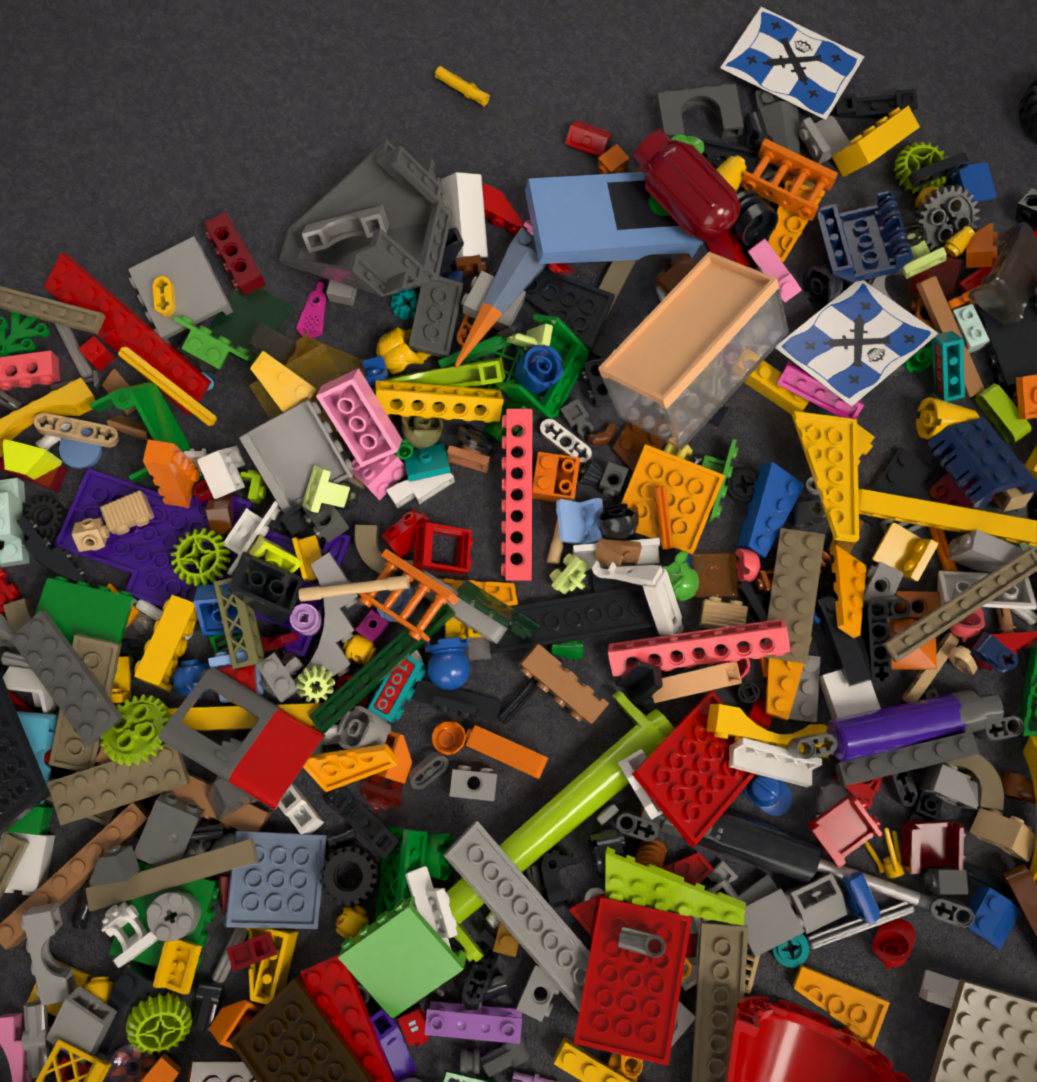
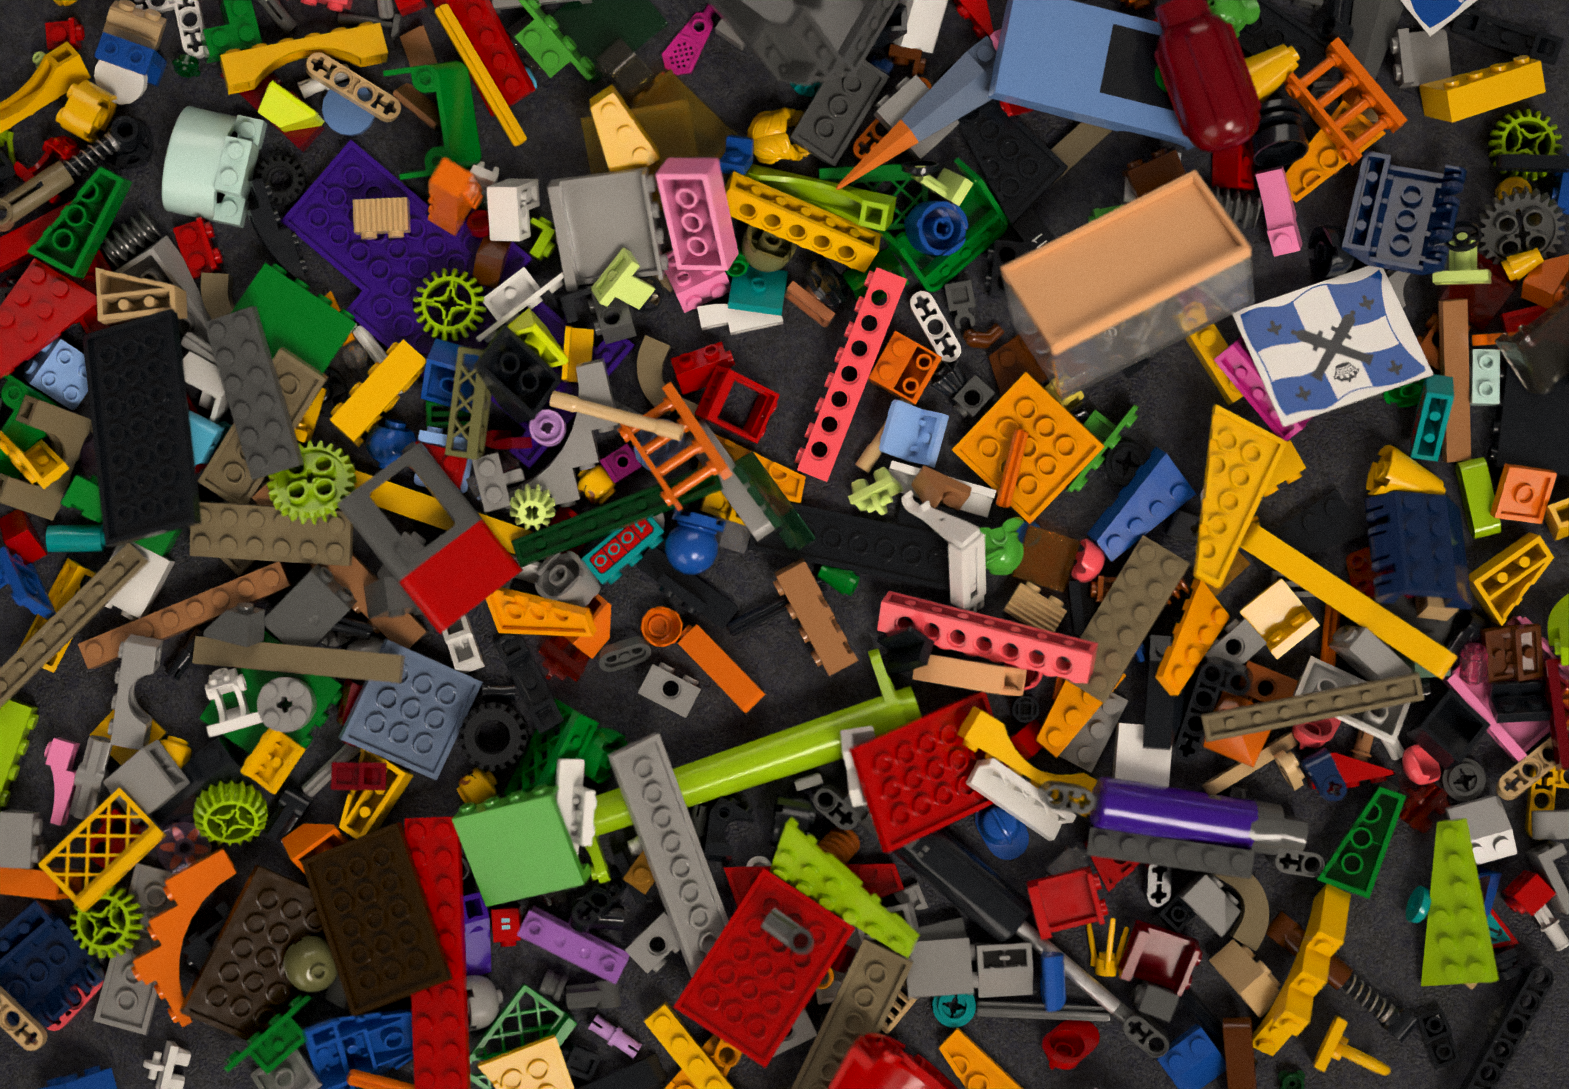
camera: 20 degrees right, 10 degrees up
(90, 534) = (330, 227): tan brick -> none
(618, 521) = (955, 451): black cylinder -> none

